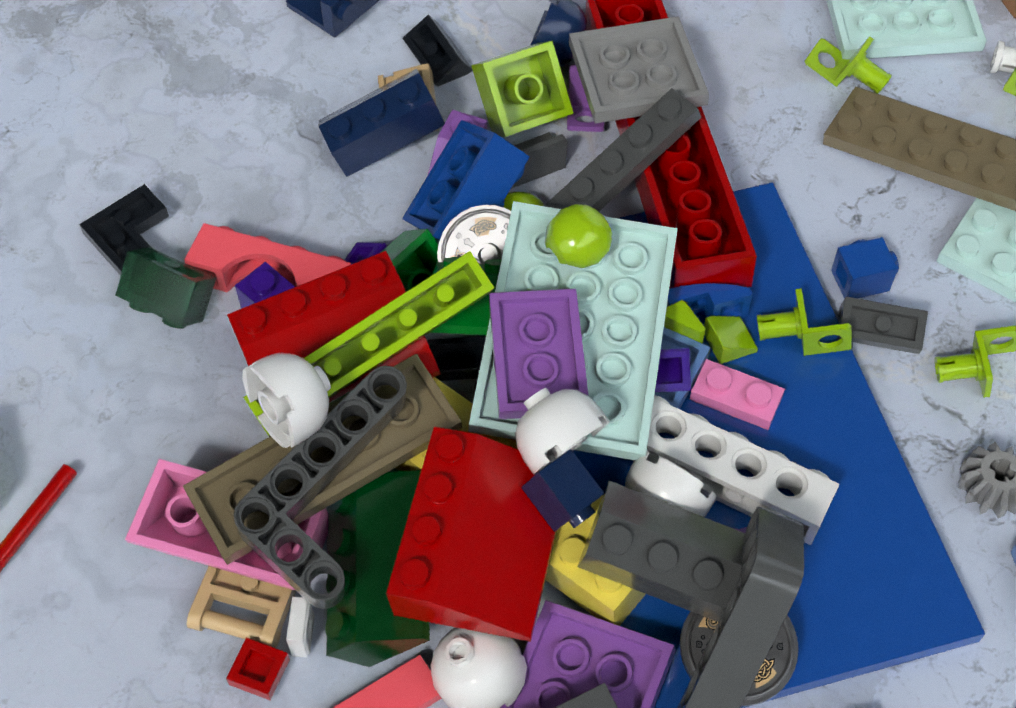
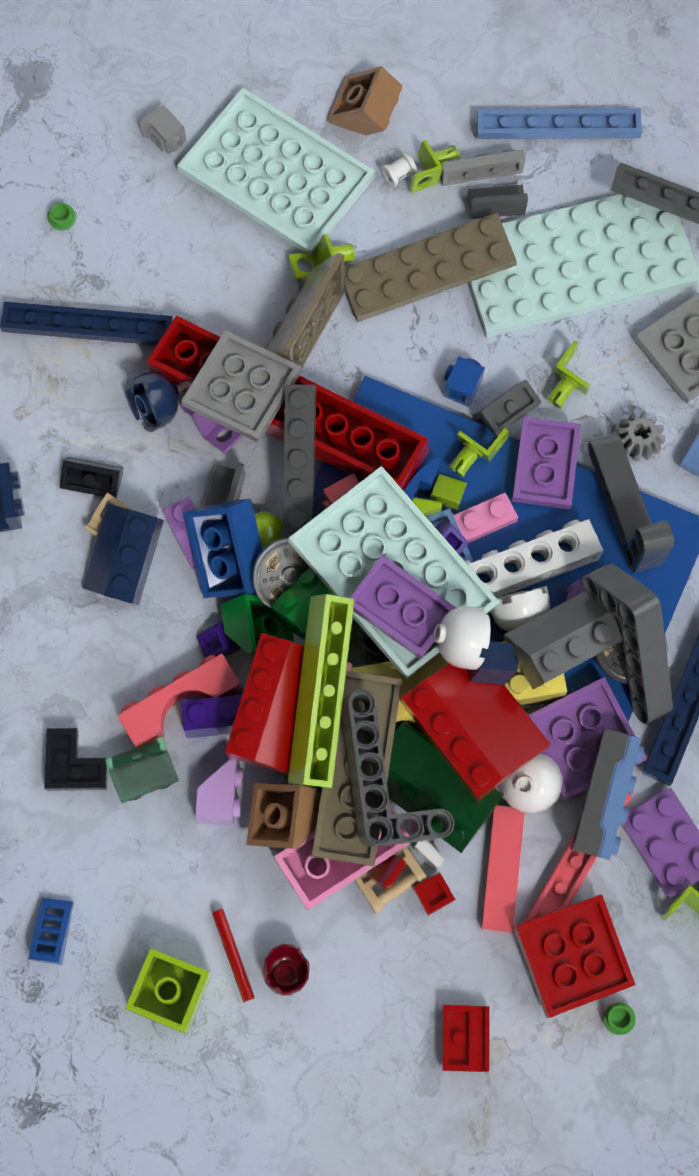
camera: 50 degrees left, 15 degrees up
(44, 575) = (285, 969): none -> dark red hair
(197, 375) = (217, 796): none -> lavender slope
(213, 434) = (282, 815): none -> medium nougat slope
(240, 596) = (388, 871): none -> red slope
(290, 395) = (335, 761): white cylinder -> none
(522, 89) = (182, 456): lime brick -> none
(579, 236) = (346, 523): lime hair -> none
(777, 83) = (309, 311): none -> dark tan slope
(860, 404) = (546, 463): none -> medium lavender plate
(893, 529) = (643, 543): none -> dark grey beam

